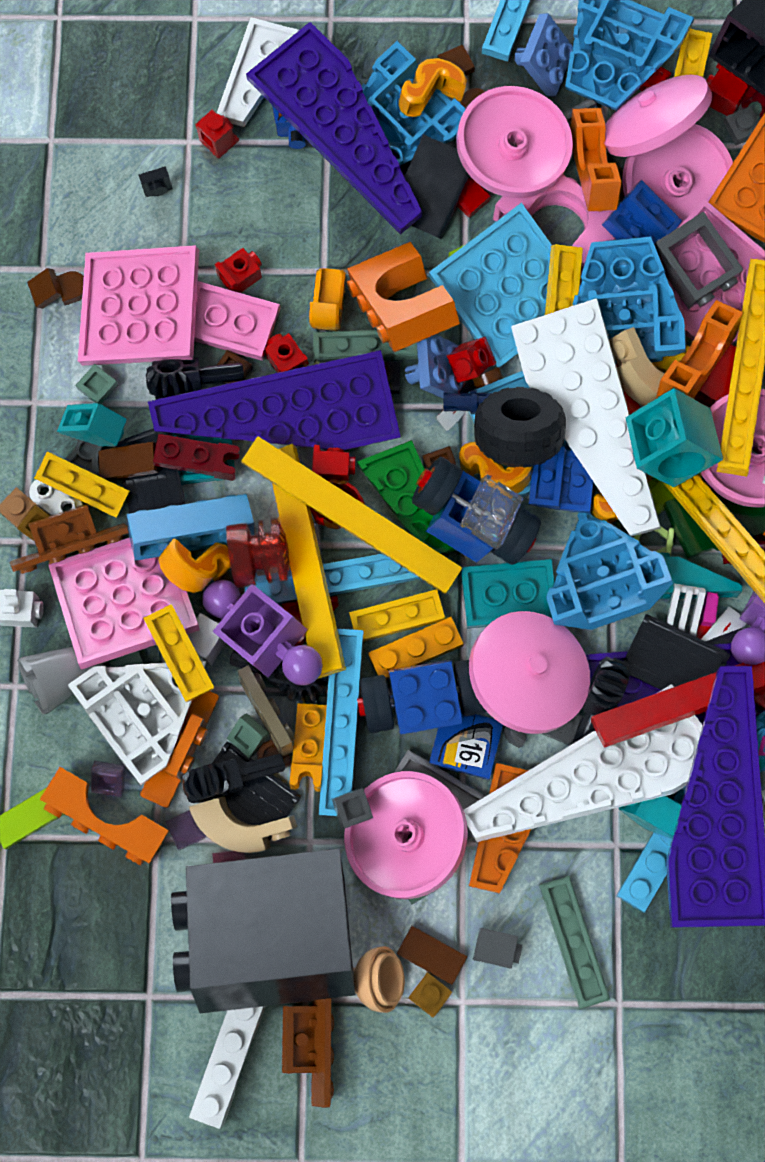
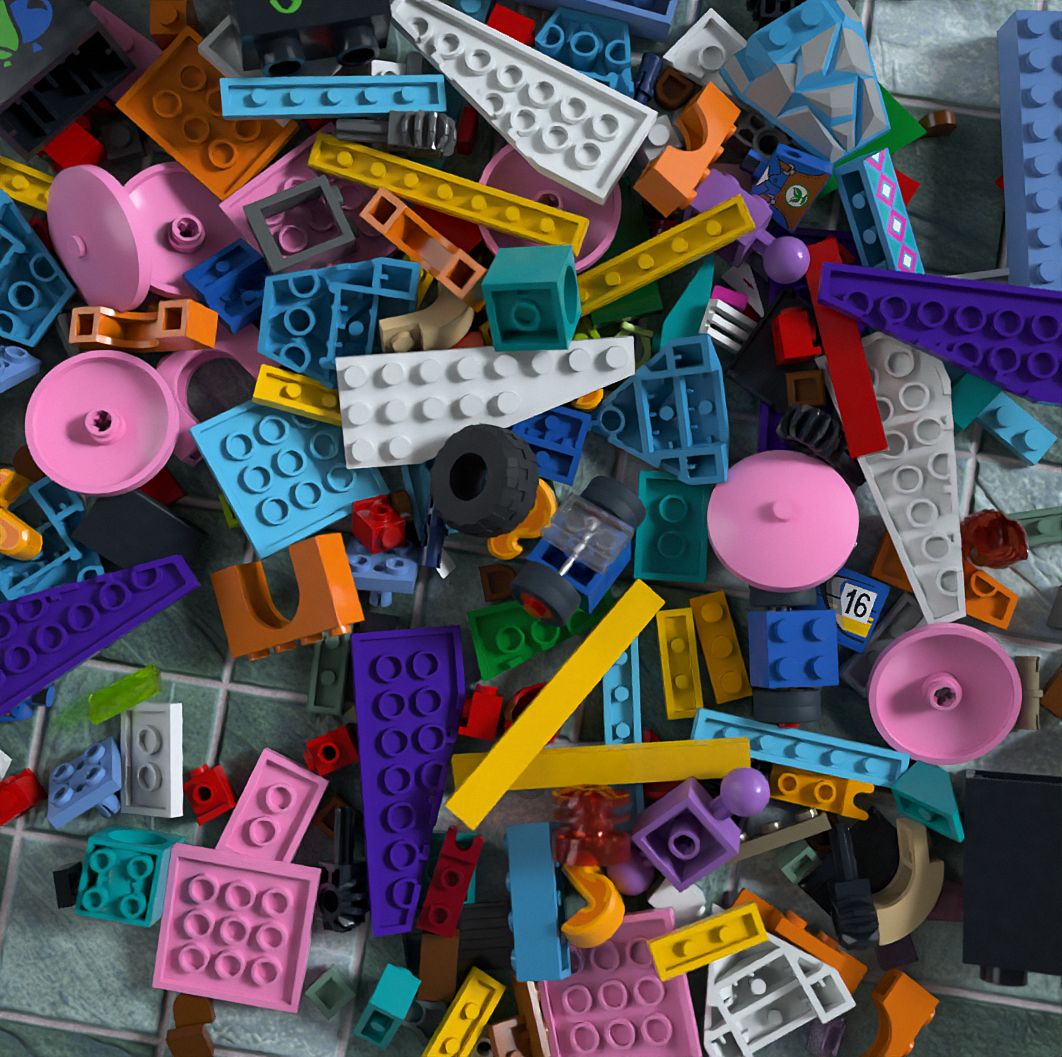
camera: 85 degrees left, 10 degrees up
(170, 215) = (125, 875): none -> teal brick
(235, 180) = (86, 783): none -> medium blue plate
(260, 223) = (152, 759): none -> white plate
(307, 196) = (124, 694): none -> clear neon green tile
(316, 831) = (929, 799): none -> teal slope
(328, 299) = (268, 687): light orange animal -> none
(352, 808) = (907, 752): dark grey plate -> none
(418, 914) = (1029, 676): none -> dark tan pin
(545, 861) = (993, 539): none -> clear red hair
(645, 680) = (807, 388): none -> reddish brown tile
(686, 662) = (794, 337): none -> red brick

